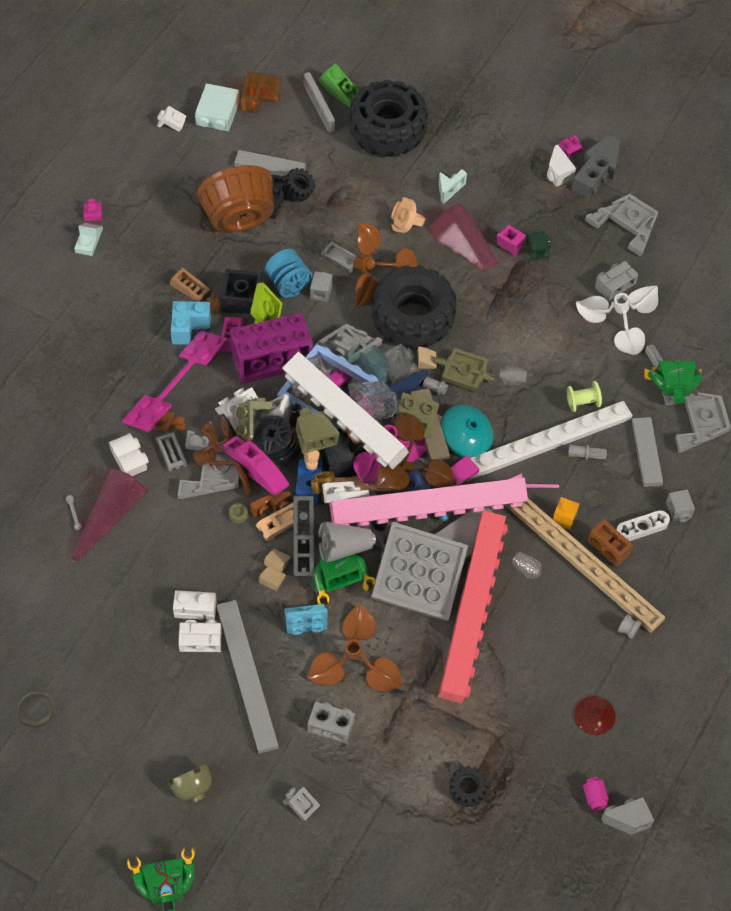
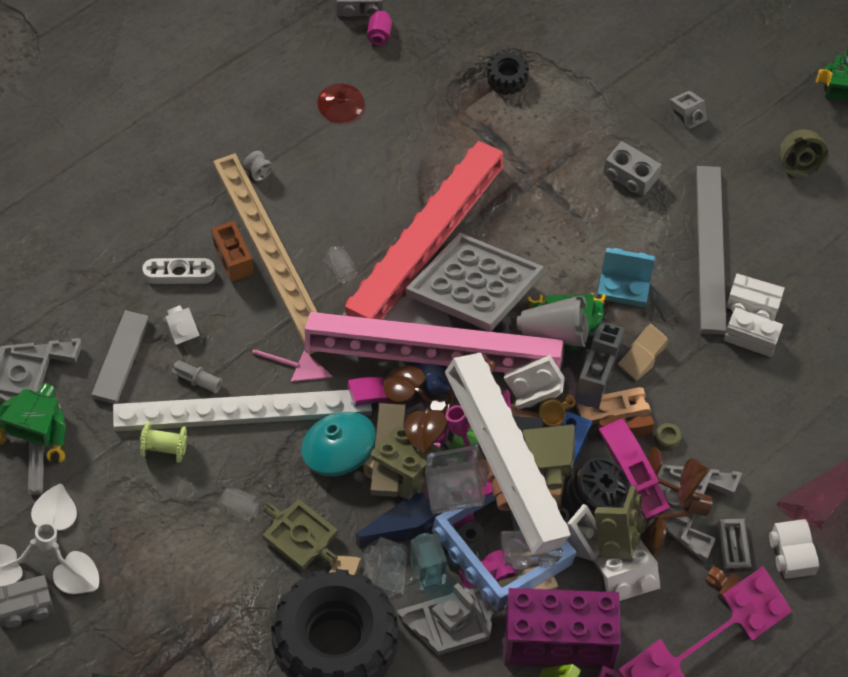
camera: 160 degrees left, 0 degrees up
(327, 669) = (556, 203): dark orange plant -> none
(434, 385) = (348, 522): light grey pin -> none
(566, 513) = (265, 304): light orange brick -> none
(619, 483) = (181, 324): none -> white bracket
(680, 506) = (122, 274): light grey brick -> none

